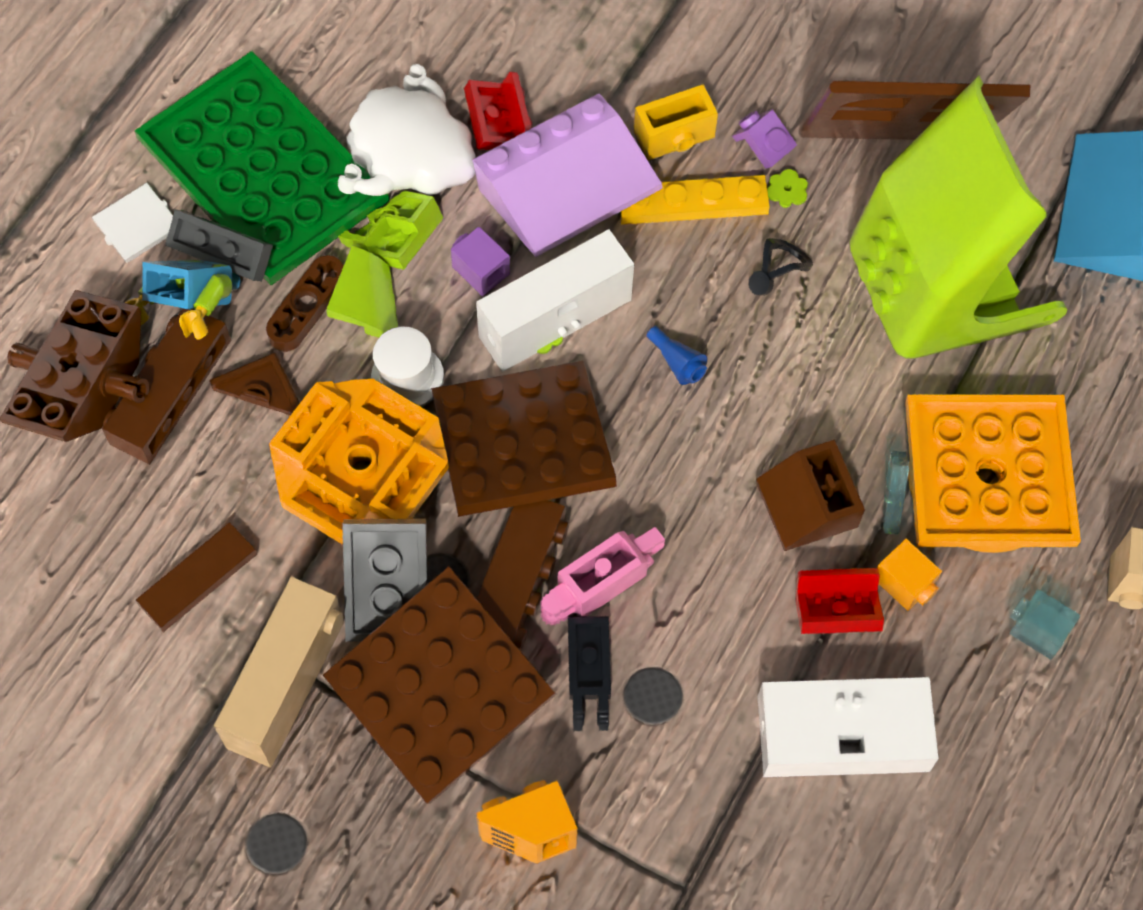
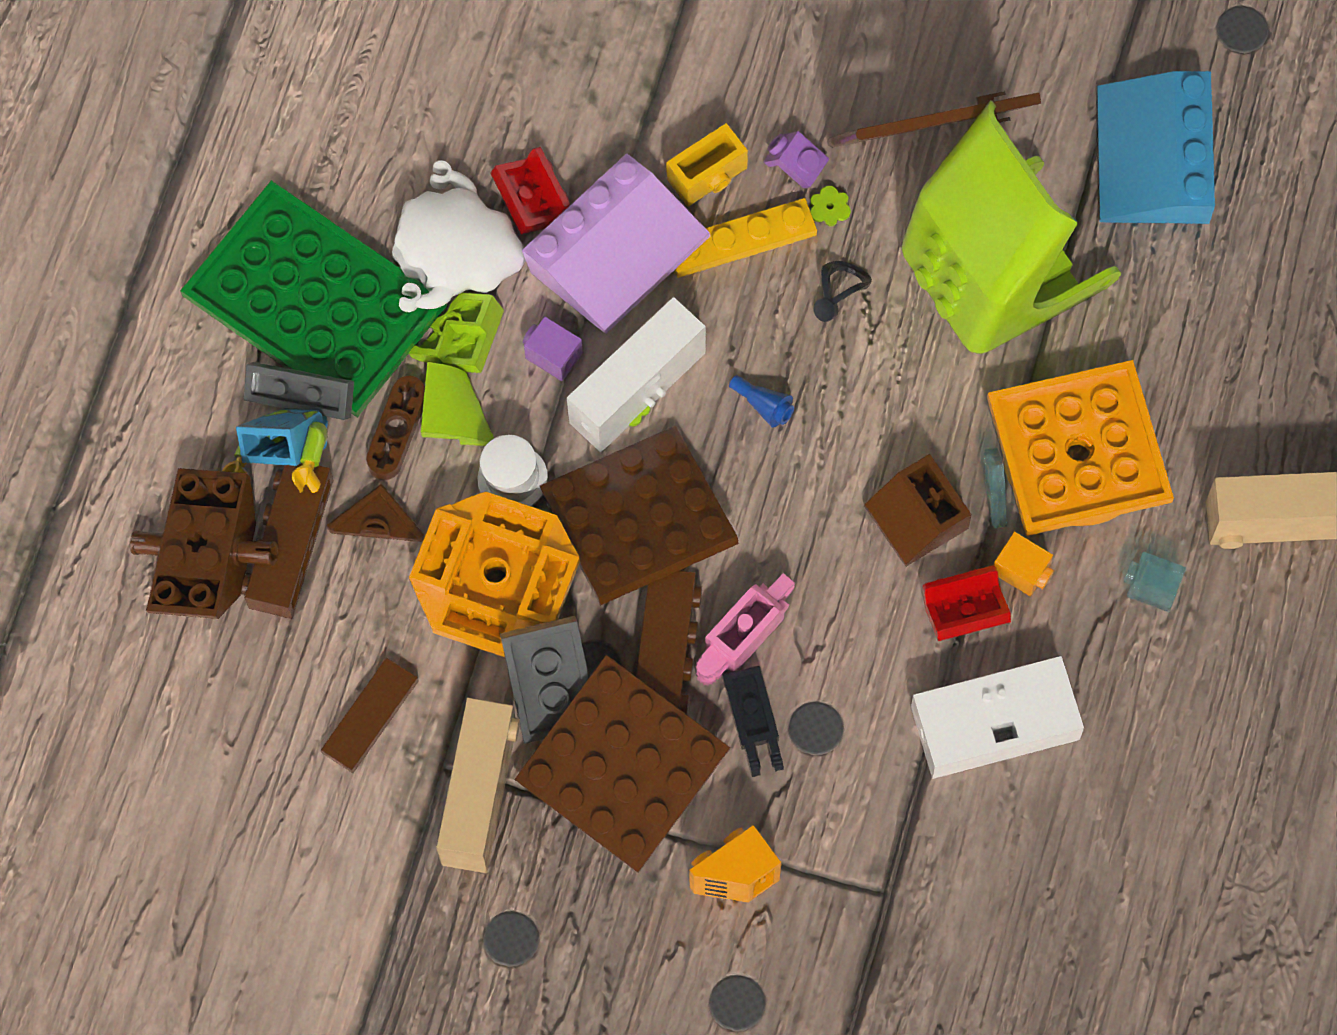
camera: 10 degrees left, 5 degrees up
(135, 222) = (207, 382): white piece -> none

